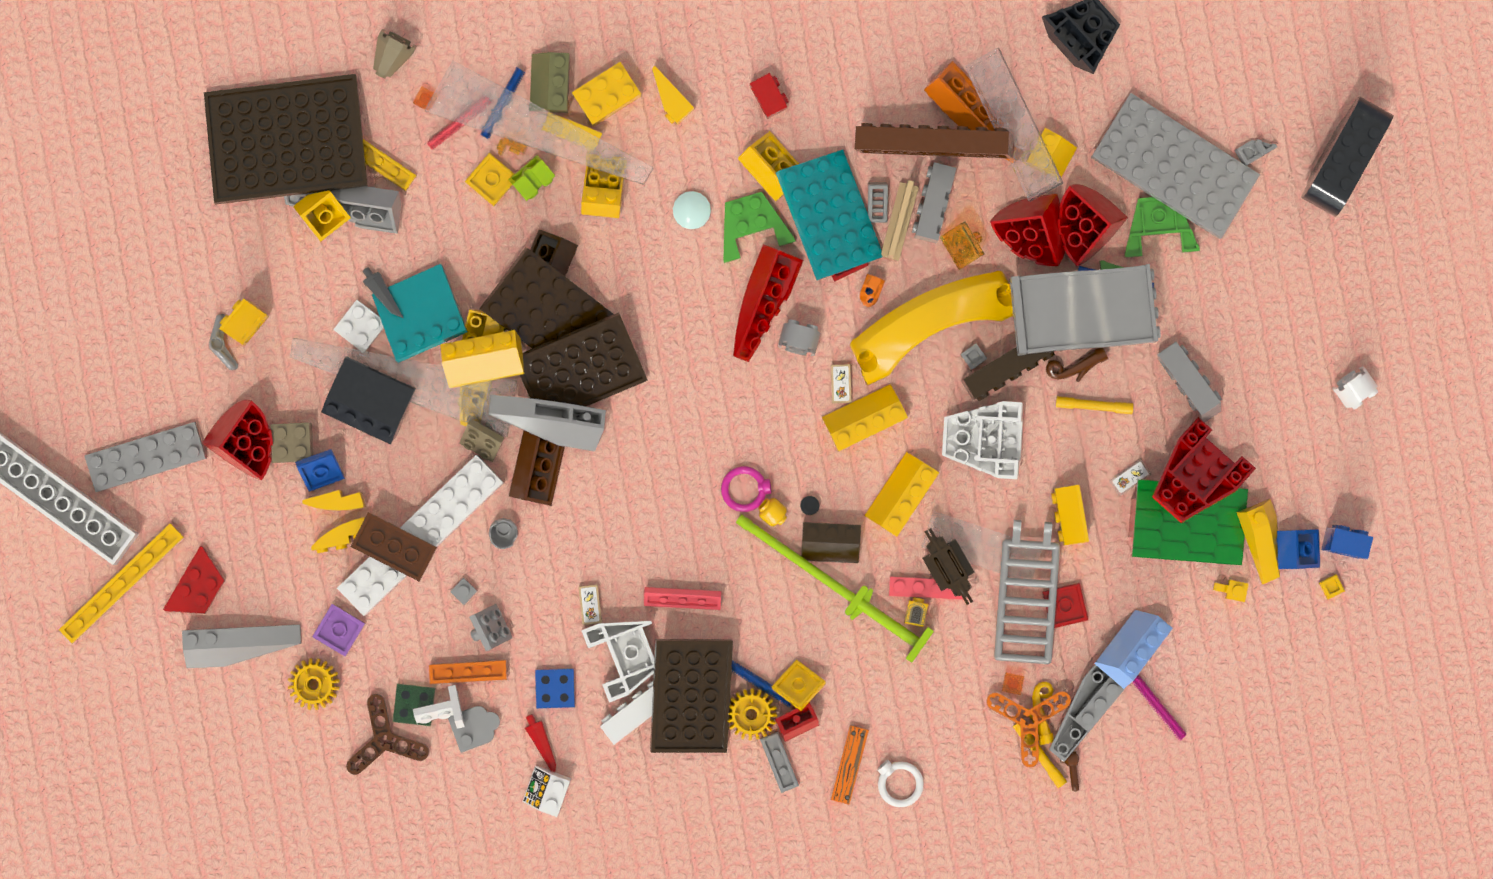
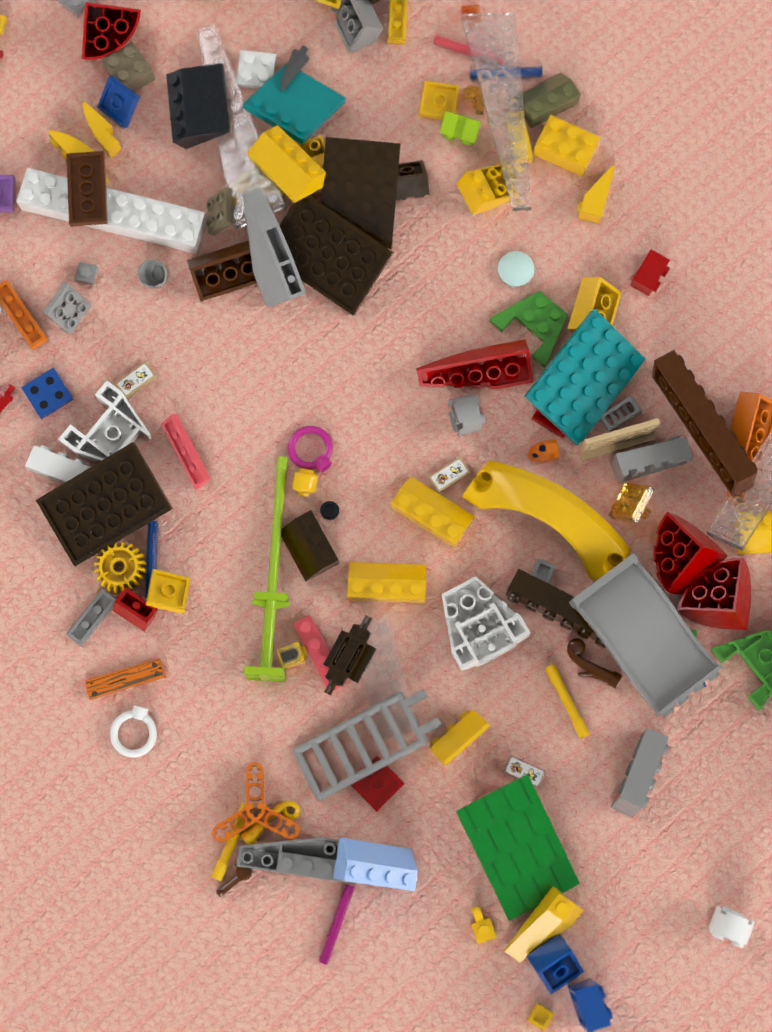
camera: 60 degrees right, 10 degrees down
(1012, 683) = (280, 778): clear orange plate -> none
(1198, 474) = (565, 826): red wedge -> none

